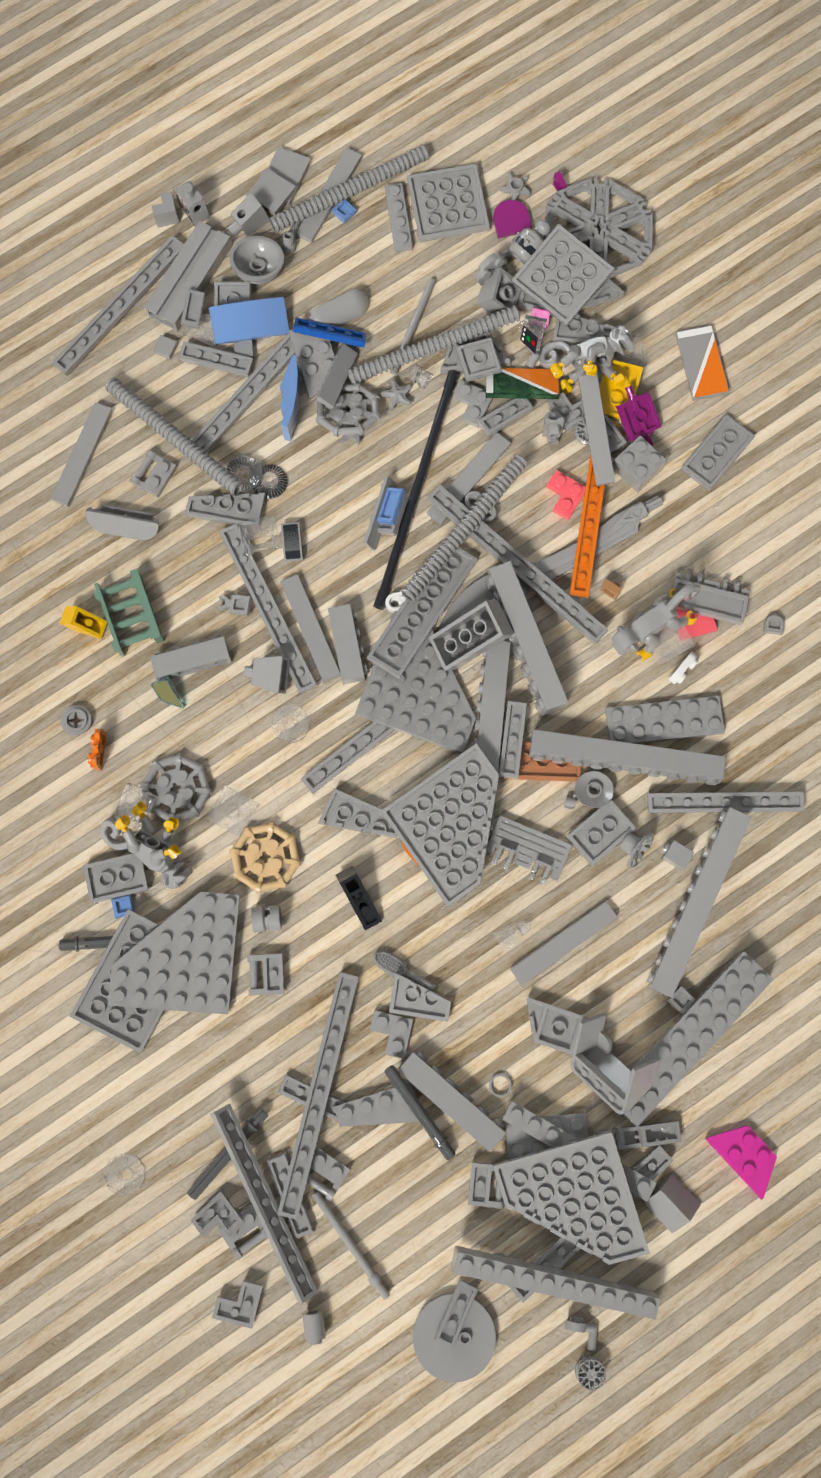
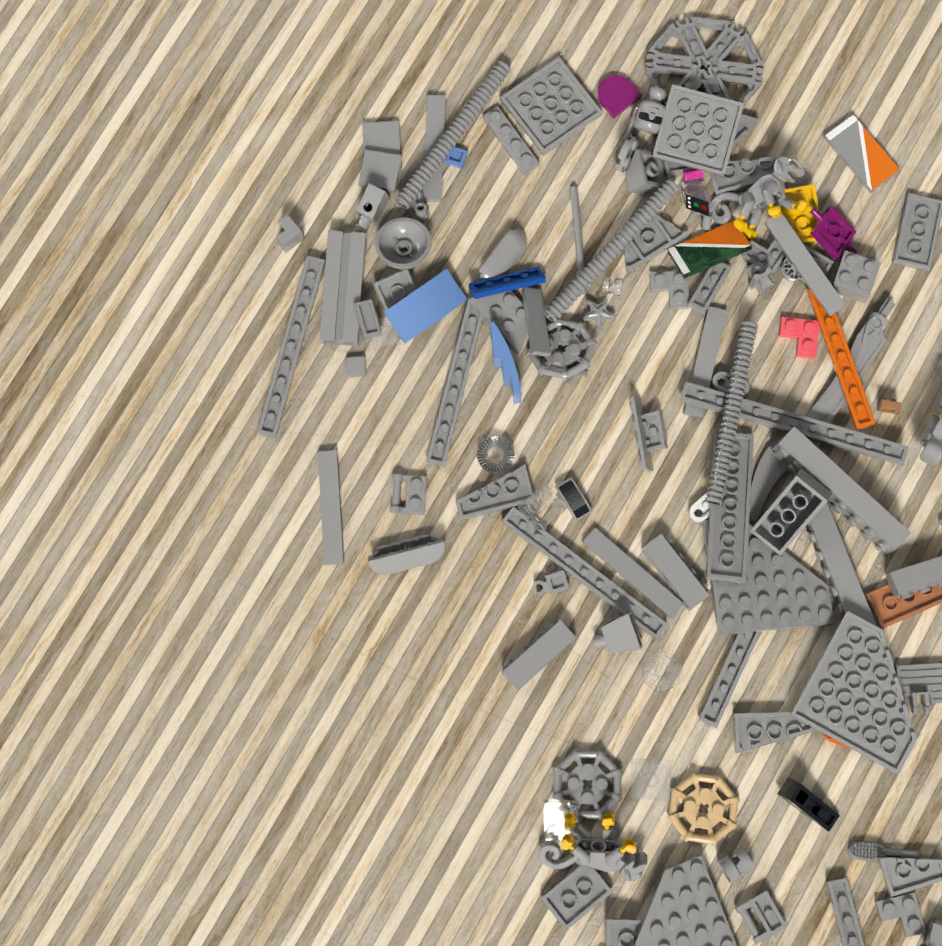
camera: 25 degrees left, 0 degrees up
(70, 714) = (457, 774): light grey gear -> none
(83, 621) = (418, 668): yellow slope -> none
(98, 741) = (498, 790): orange plate -> none
(121, 905) = (595, 918): medium blue tile -> none
(140, 599) = (461, 620): sand green fence -> none
(167, 692) = (533, 697): tile -> none
(174, 436) = (412, 450): light grey piece -> none
(188, 199) = (309, 214): light grey torso -> none
(216, 359) = (411, 356): light grey plate -> none
(244, 348) = (432, 335): light grey tile -> none
(277, 486) = (531, 453): dish -> none
(382, 593) = (682, 507): black piece -> none
(391, 506) = (650, 422): medium blue tile -> none
(478, 359) = (660, 245): light grey plate -> none
(512, 740) = (873, 589): light grey plate -> none
(515, 187) = (605, 62): light grey animal -> none
(558, 181) = (645, 40): magenta tile -> none

